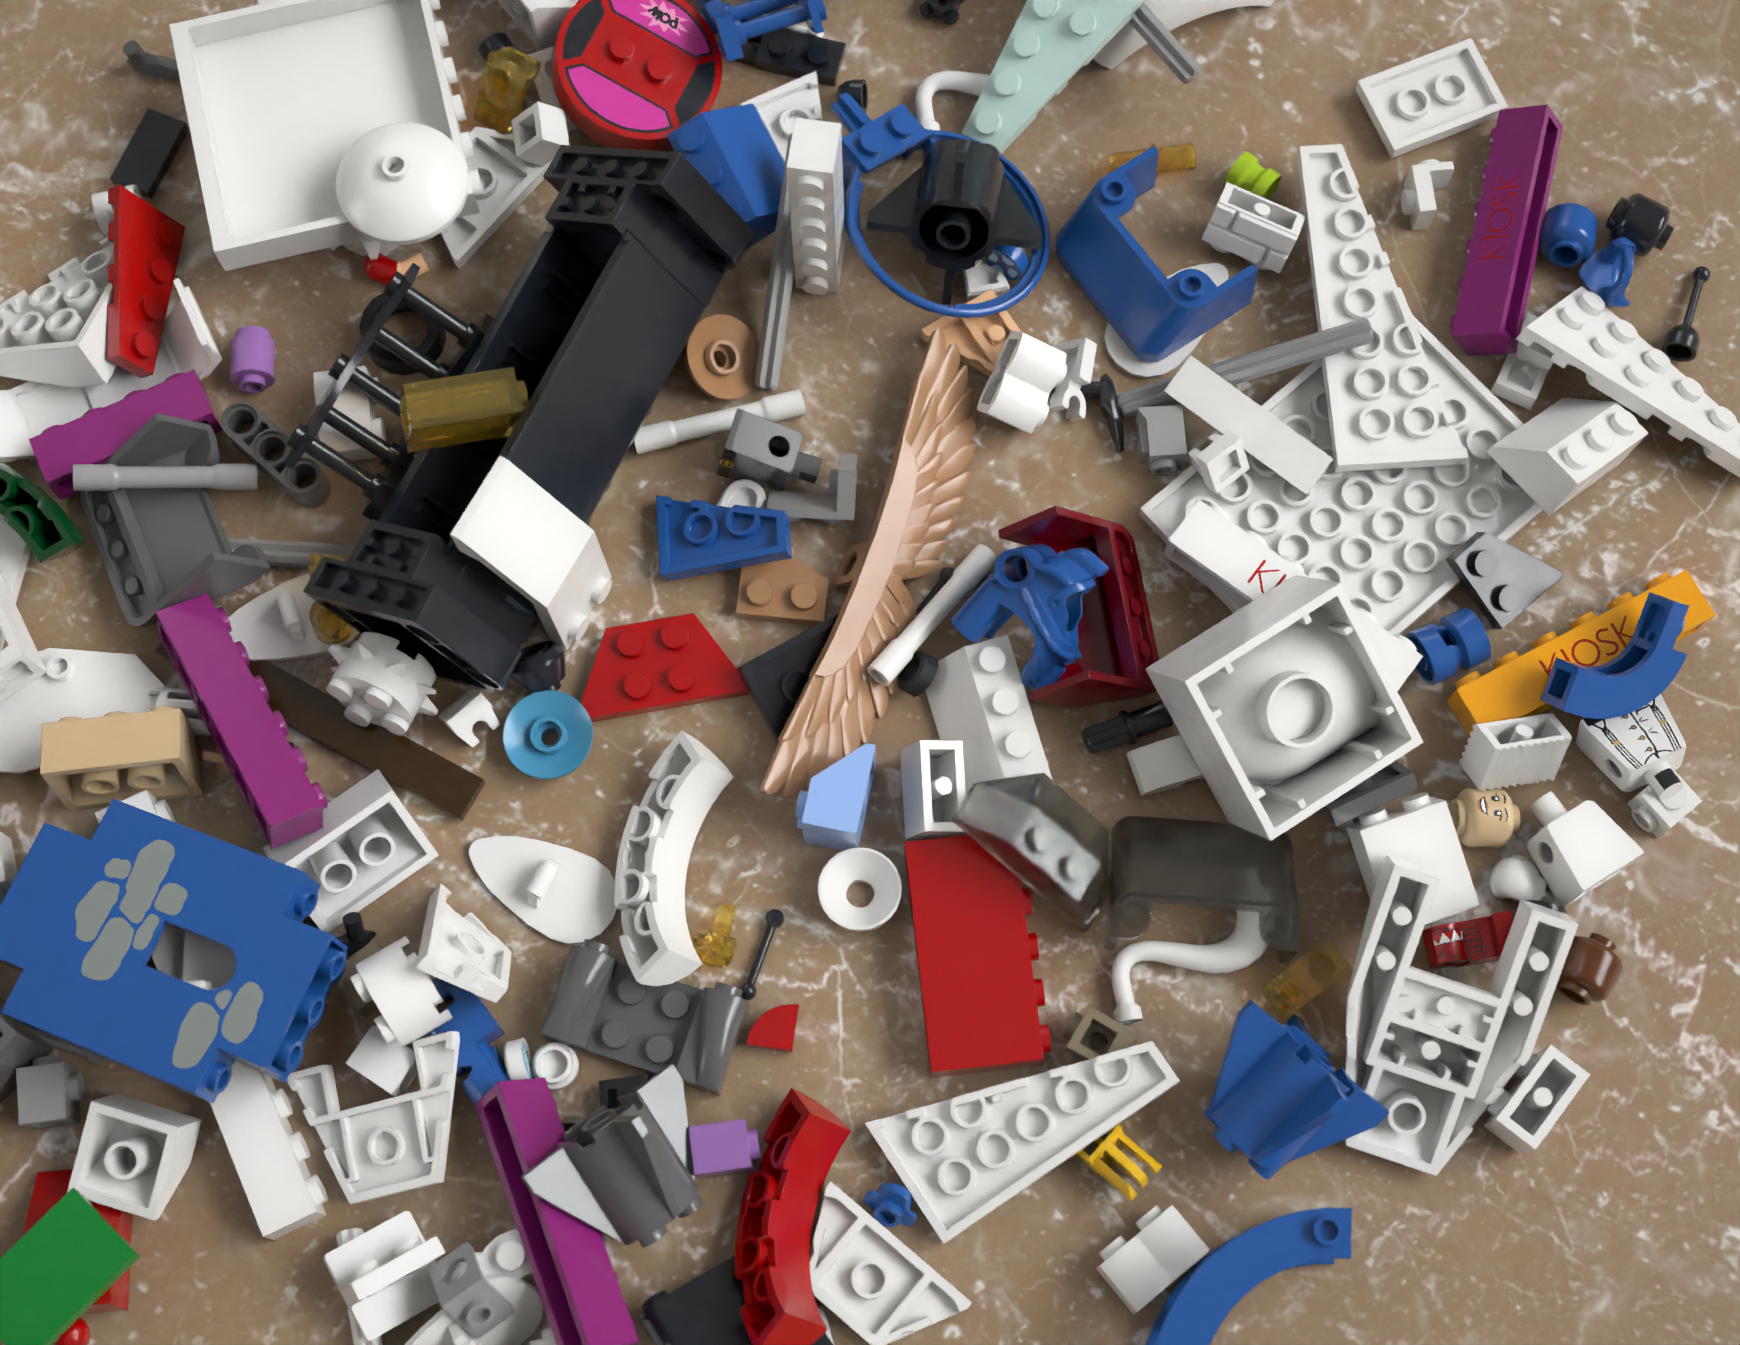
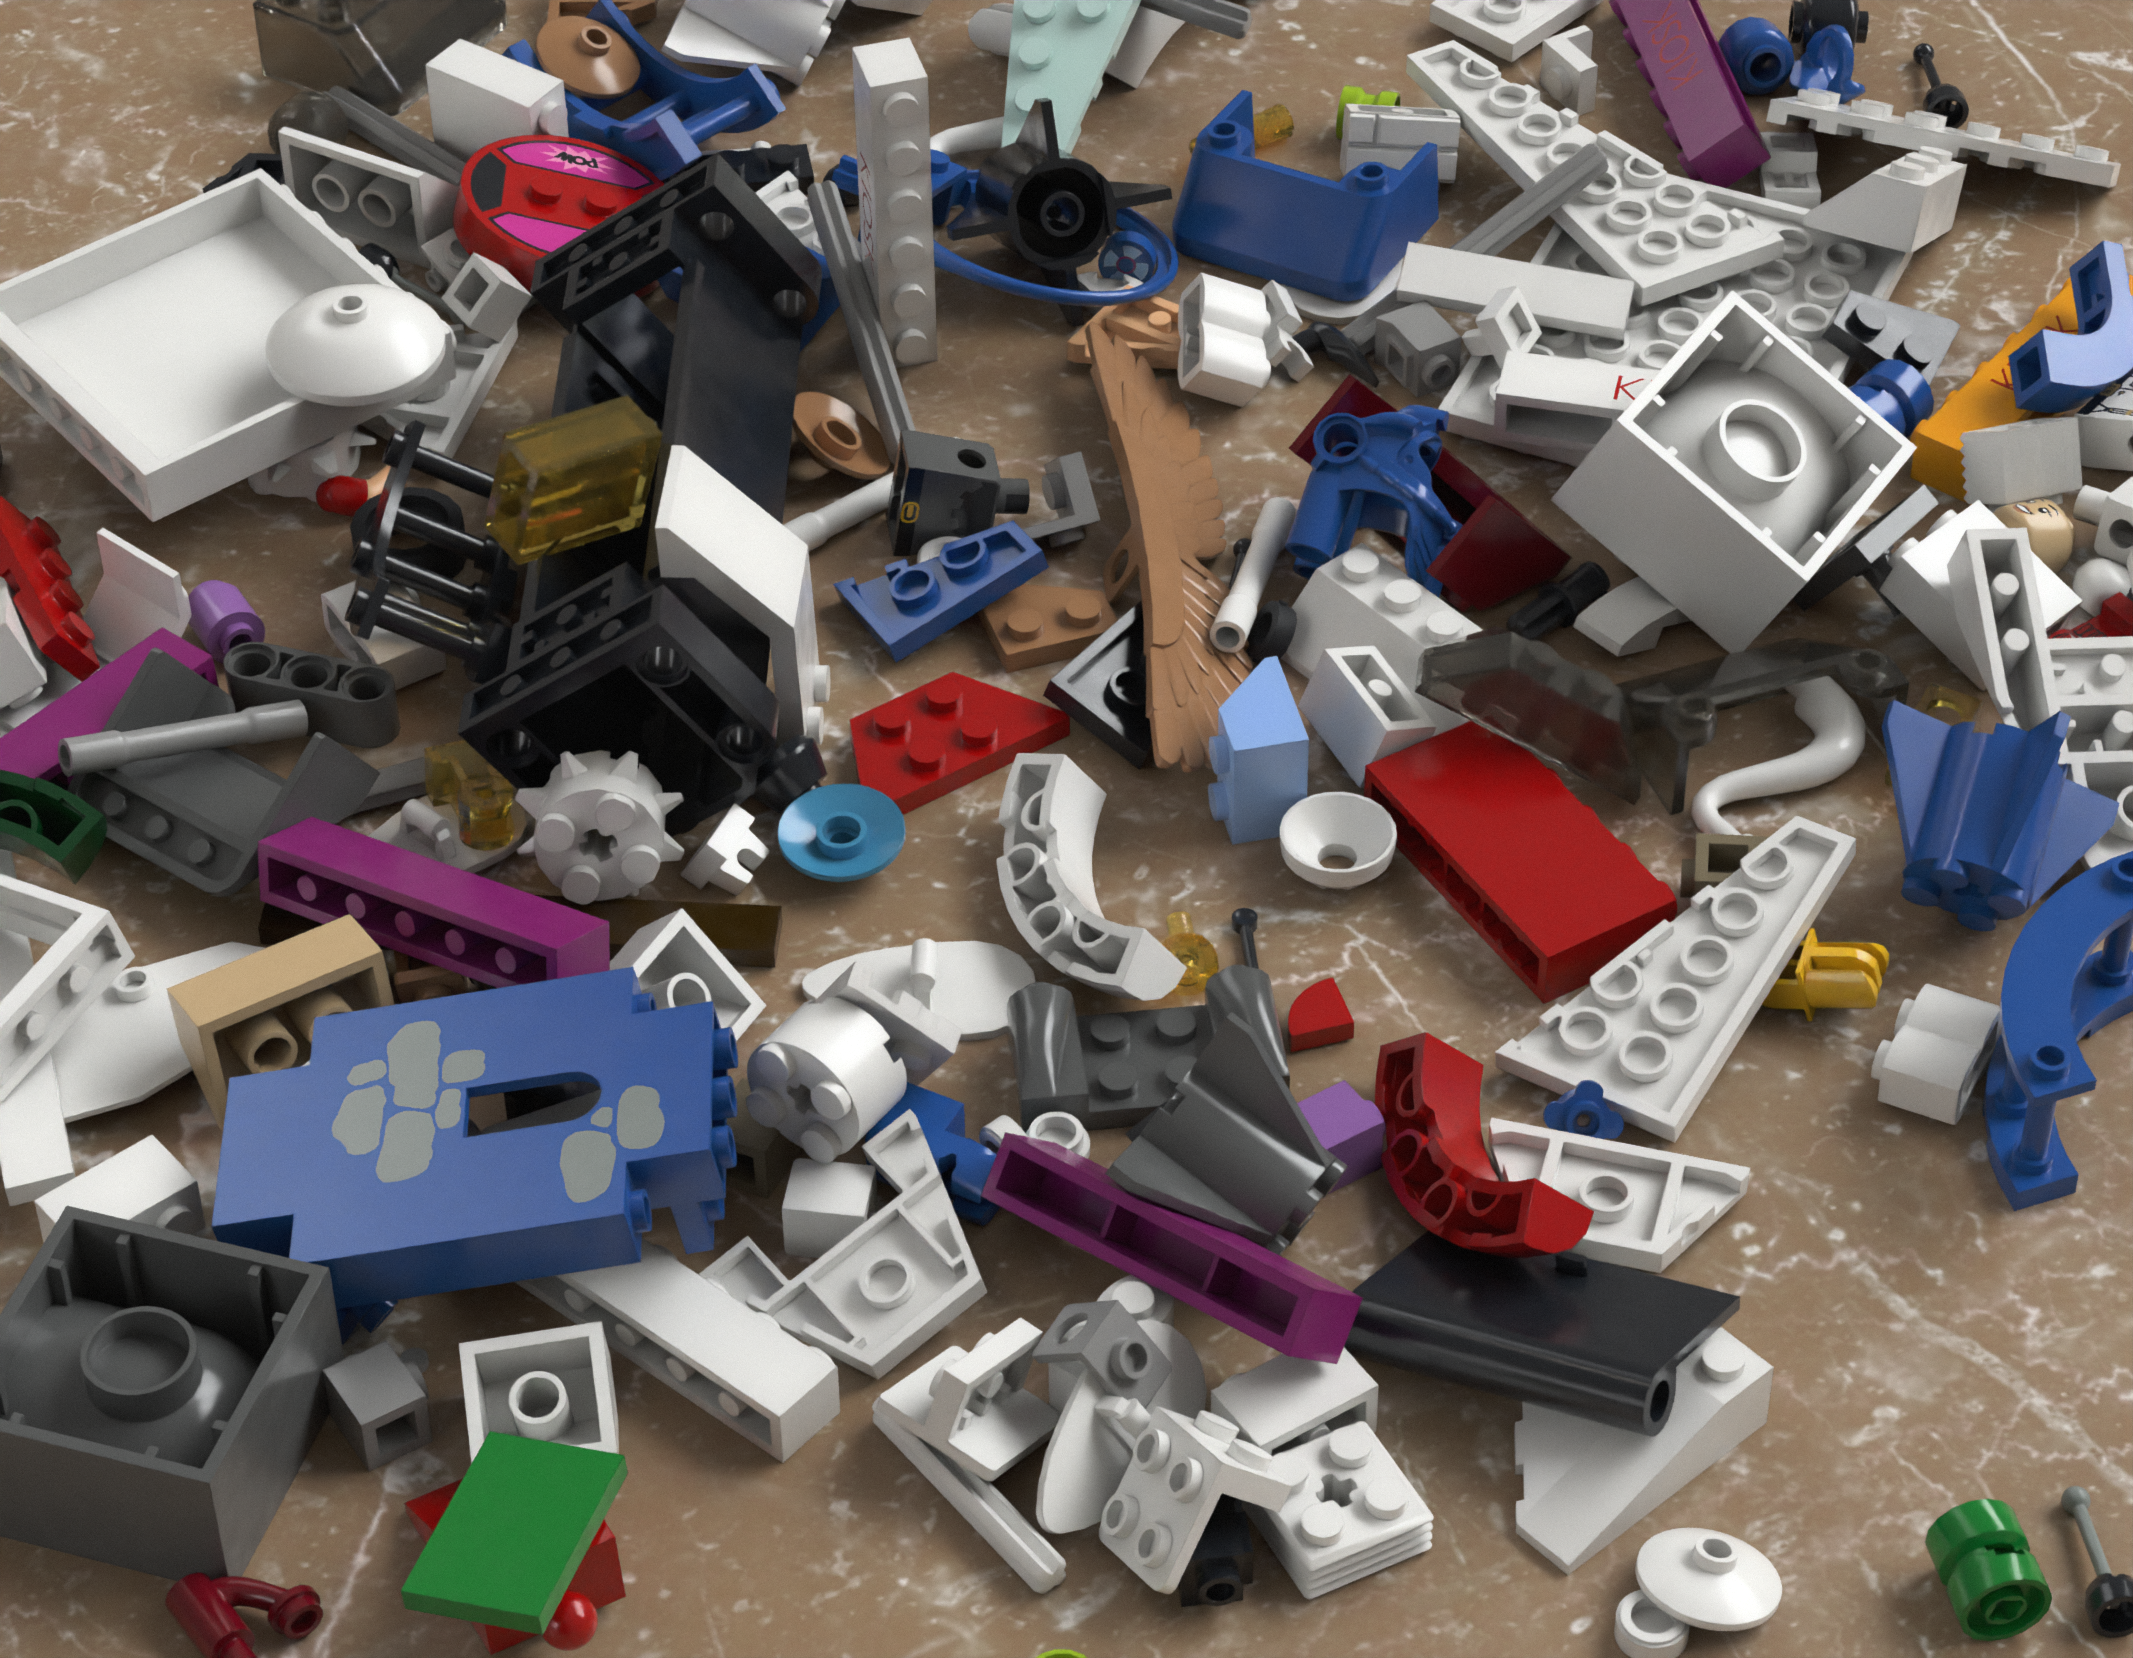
camera: 25 degrees left, 30 degrees down
(504, 88) = (415, 264): clear yellow leg -> none

